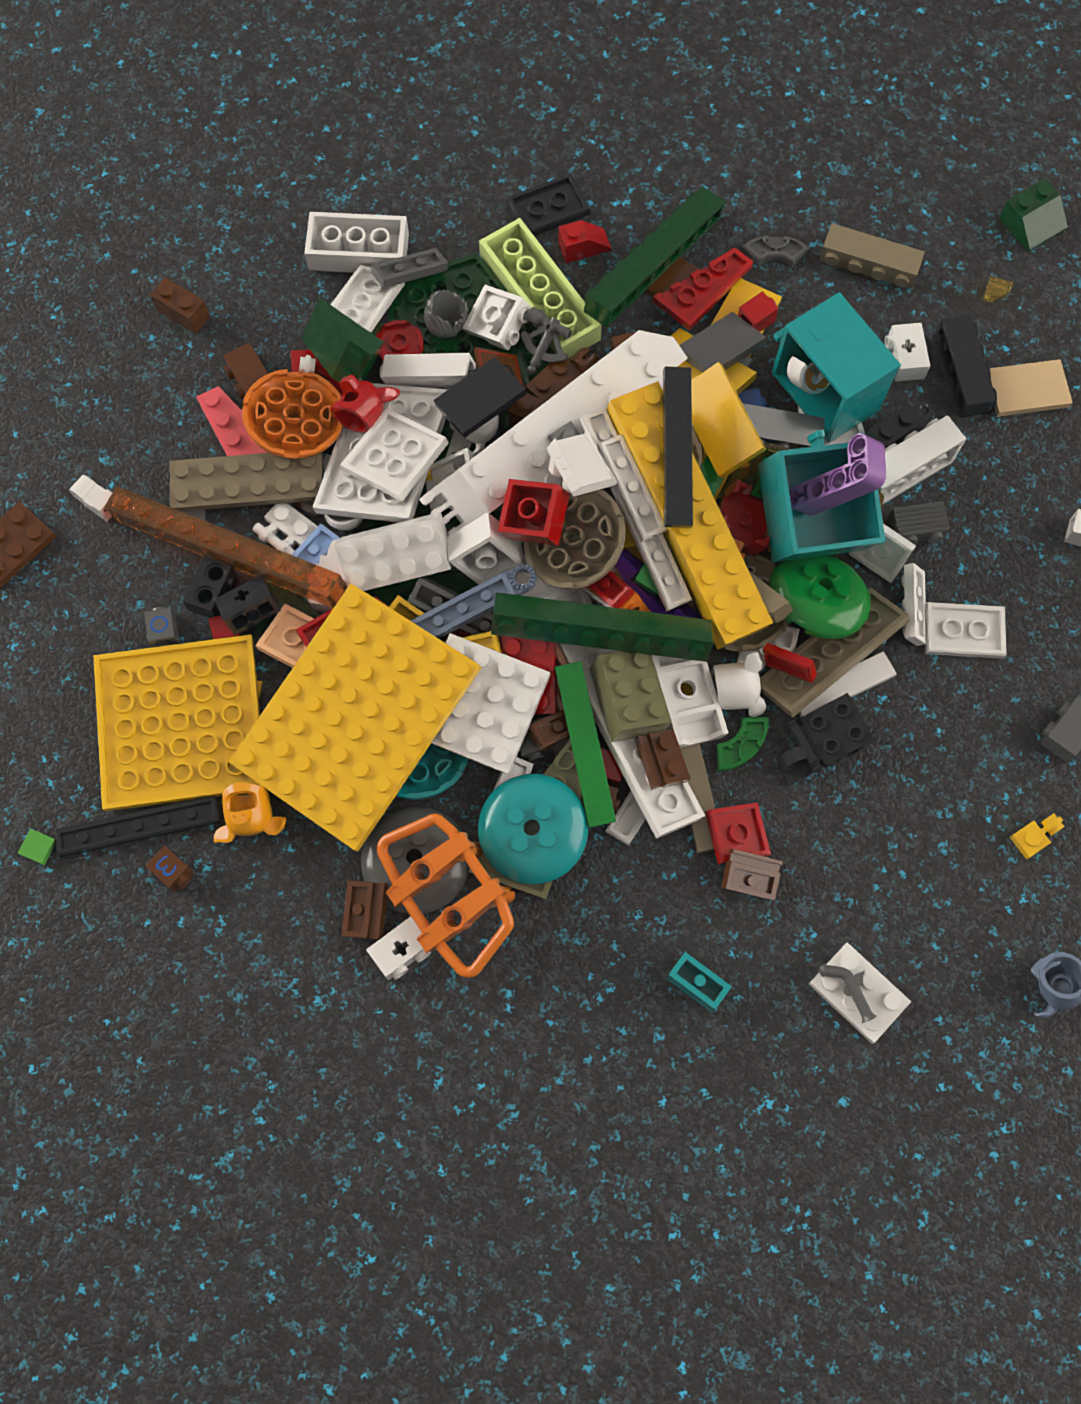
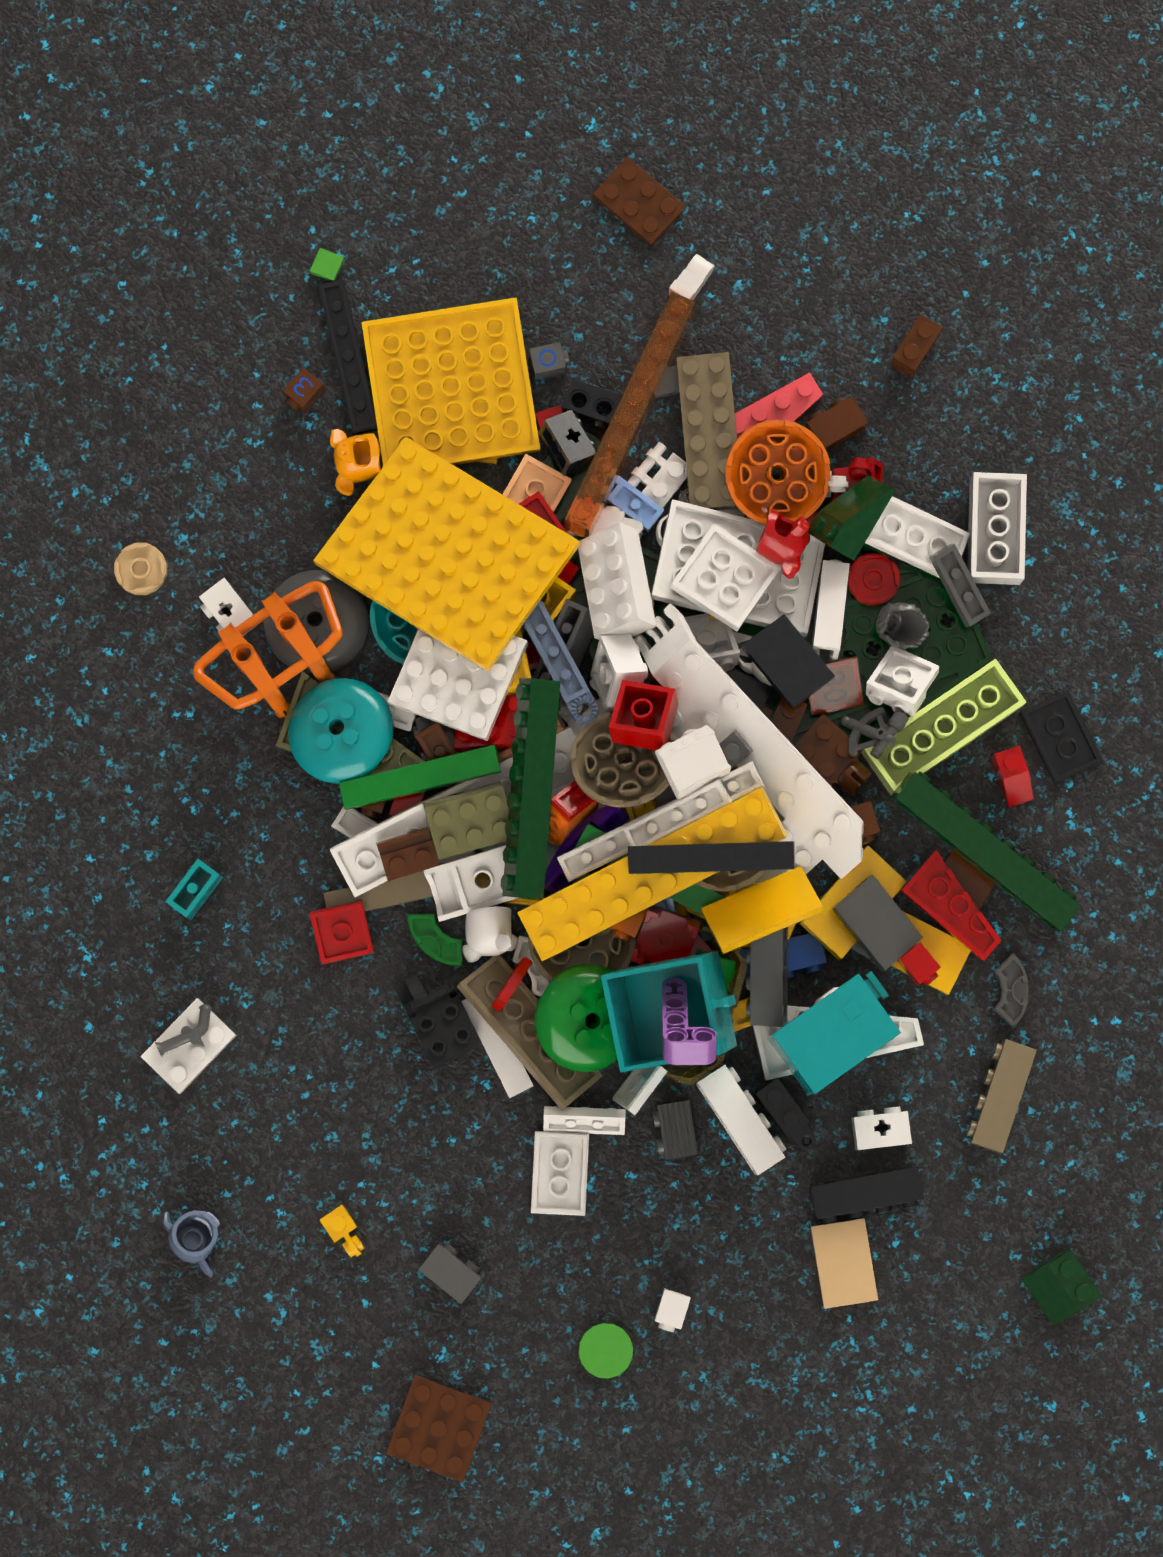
camera: 90 degrees right, 10 degrees up
(294, 346) = (866, 466): none -> red plate
(349, 1046) = (140, 569): none -> tan tile
(365, 910) = (264, 575): reddish brown plate -> none
(752, 874) = (299, 943): plate -> none
(776, 604) = (573, 957): dark tan slope -> none
(997, 288) = (968, 1237): clear yellow tile -> none

